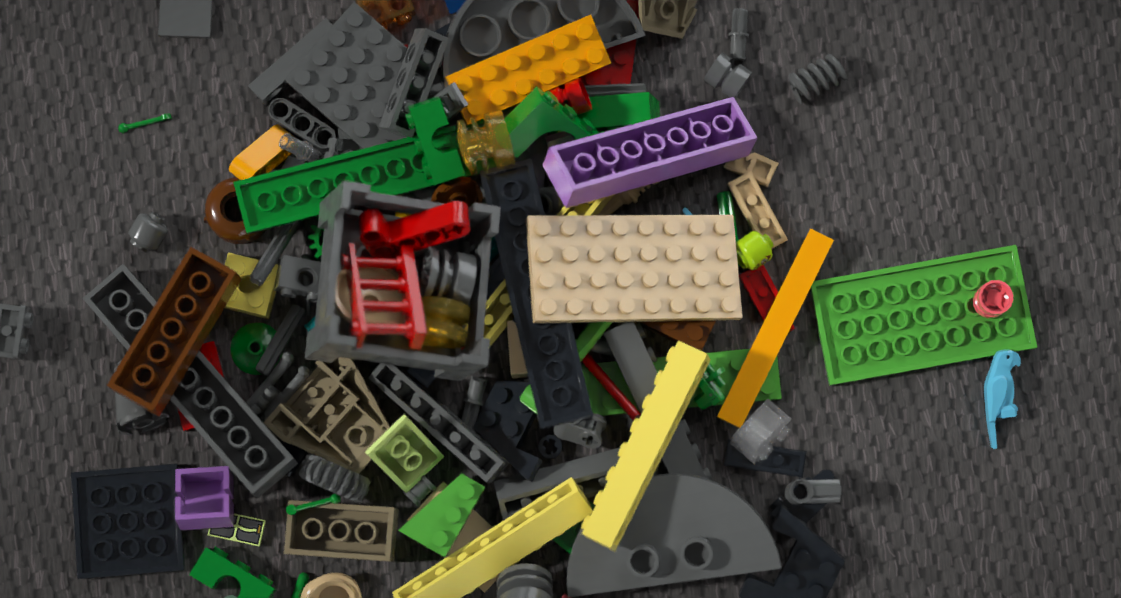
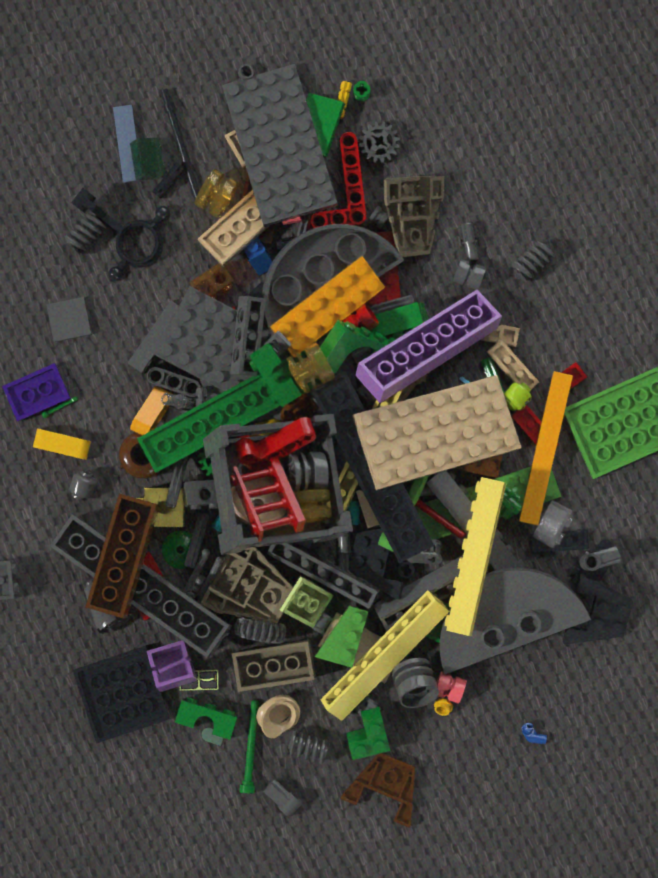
camera: 15 degrees left, 5 degrees up
(118, 95) = (36, 392): none -> dark purple plate
(134, 170) = (61, 444): none -> yellow beam
(292, 509) = (236, 659): green hinge -> none
(498, 354) = (354, 512): none -> teal pin
(841, 241) = (576, 371): none -> red tile

